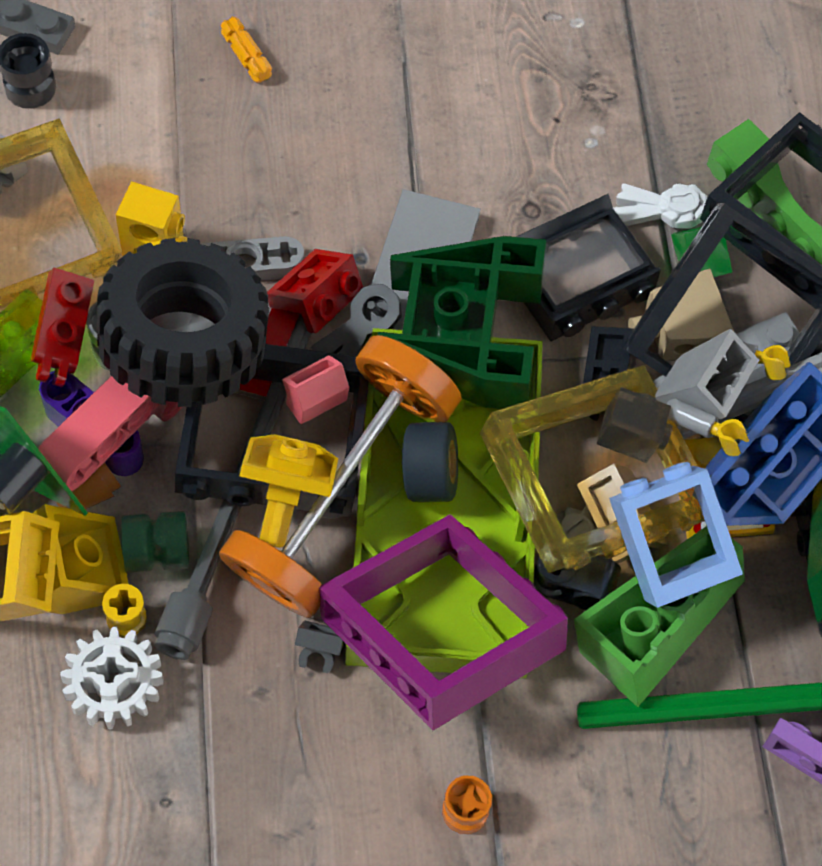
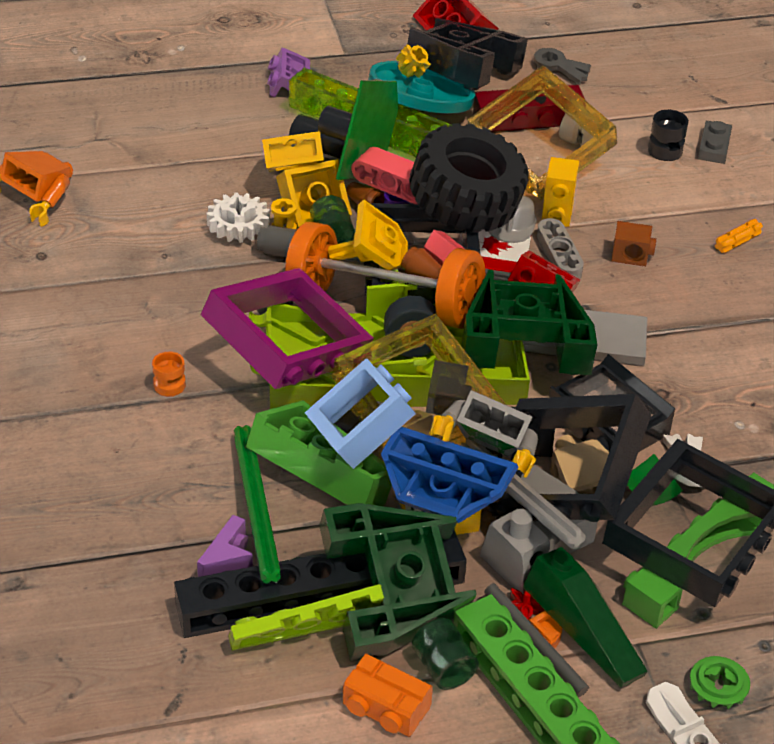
camera: 85 degrees right, 20 degrees down
(255, 171) = (633, 243): none -> dark orange brick
(337, 422) = (420, 263): none -> dark orange cone

